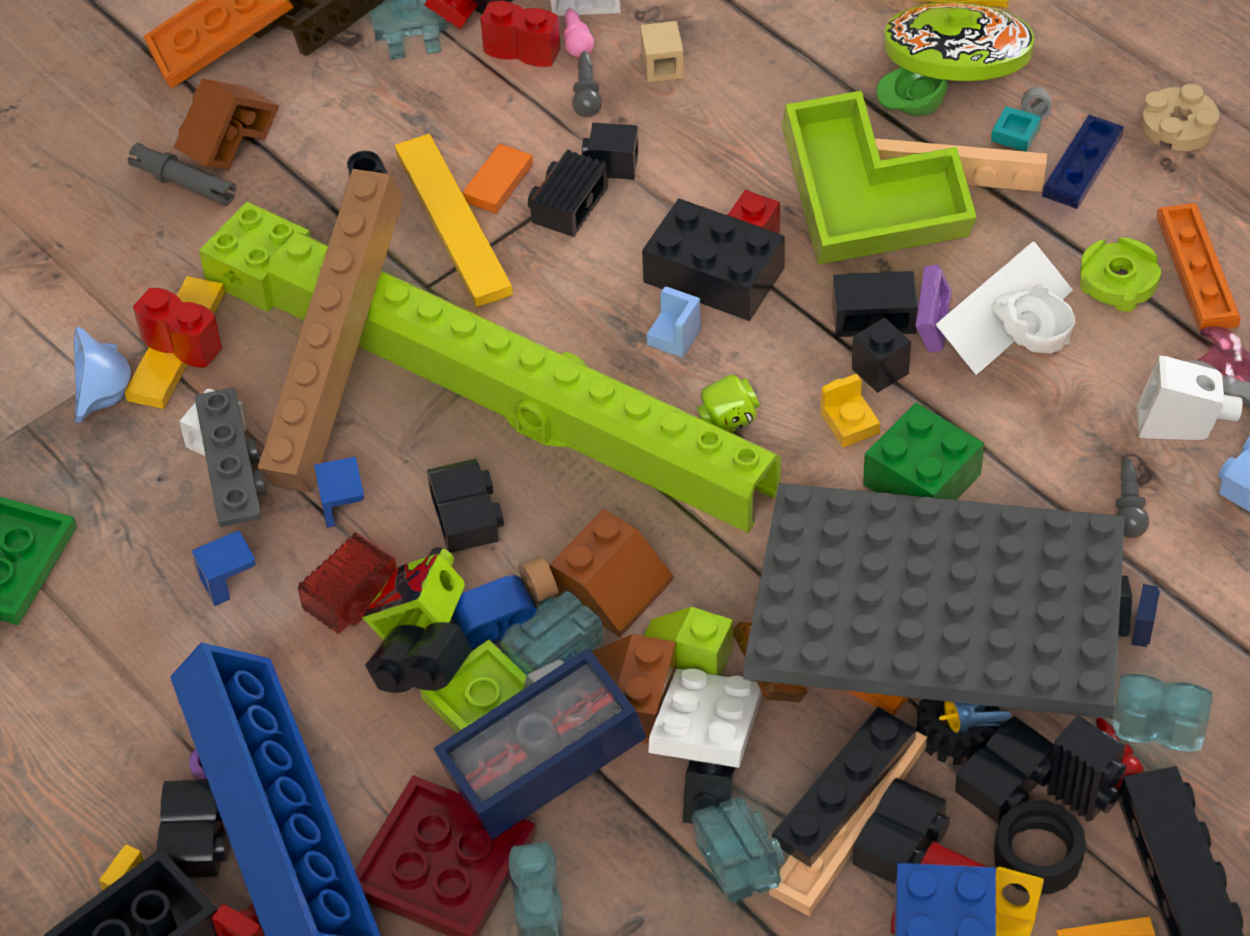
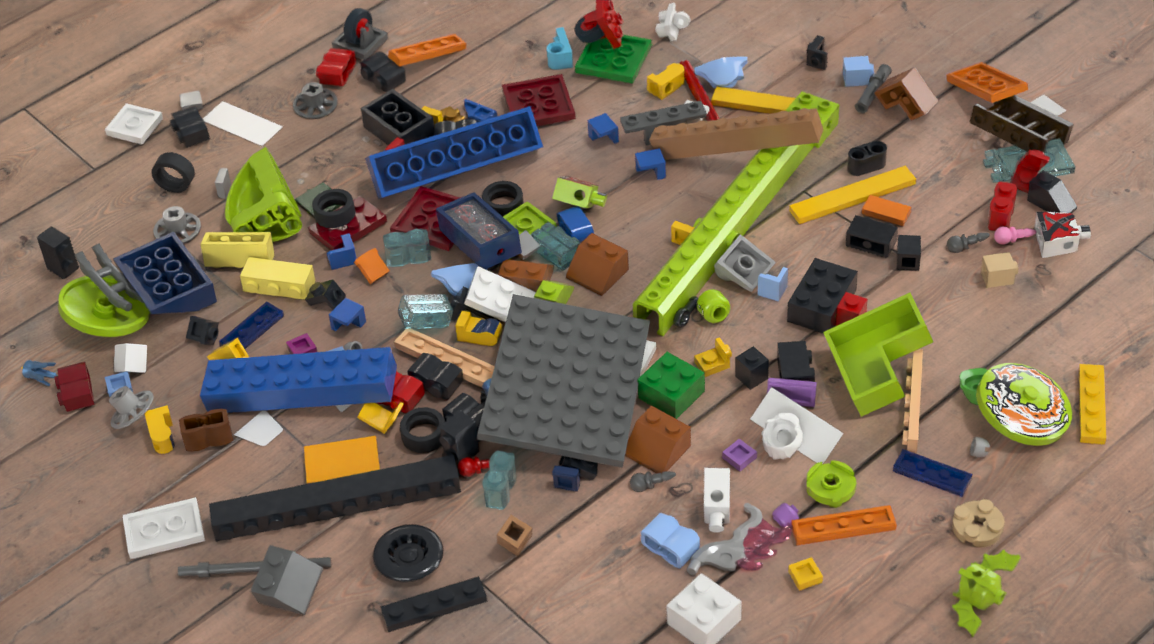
camera: 90 degrees right, 5 degrees down
(66, 244) = (816, 55): none -> black bracket
(98, 468) = (666, 82): none -> yellow leg
(105, 683) = (545, 95): none -> dark red plate
(107, 843) = (451, 114): none -> pearl gold piece
(110, 798) = (478, 112): none -> blue tile
(114, 425) = (698, 90): none -> red axle
(133, 191) = (857, 71): none -> light blue brick
(177, 327) = (749, 92): red brick -> none
(346, 583) = (595, 171): clear red brick -> none
(397, 709) = (503, 189): none -> black tyre
(418, 657) = (538, 195): black brick -> none
(464, 505) = (642, 209): black brick -> none
(538, 579) = (590, 228): medium nougat beam -> none
(539, 445) = (679, 232): none -> yellow plate
(630, 356) = (743, 264): none -> light grey slope
(635, 795) = (455, 276): none -> light blue hat
(773, 766) = (477, 330): none -> yellow leg
(844, 786) = (457, 350): black plate -> none
(1016, 128) = (953, 436): teal plate -> none
(1051, 474) = (658, 440): none -> dark orange slope
(1062, 386) = (739, 455): none -> medium lavender tile
(1182, 335) = (784, 514): none -> medium lavender piece

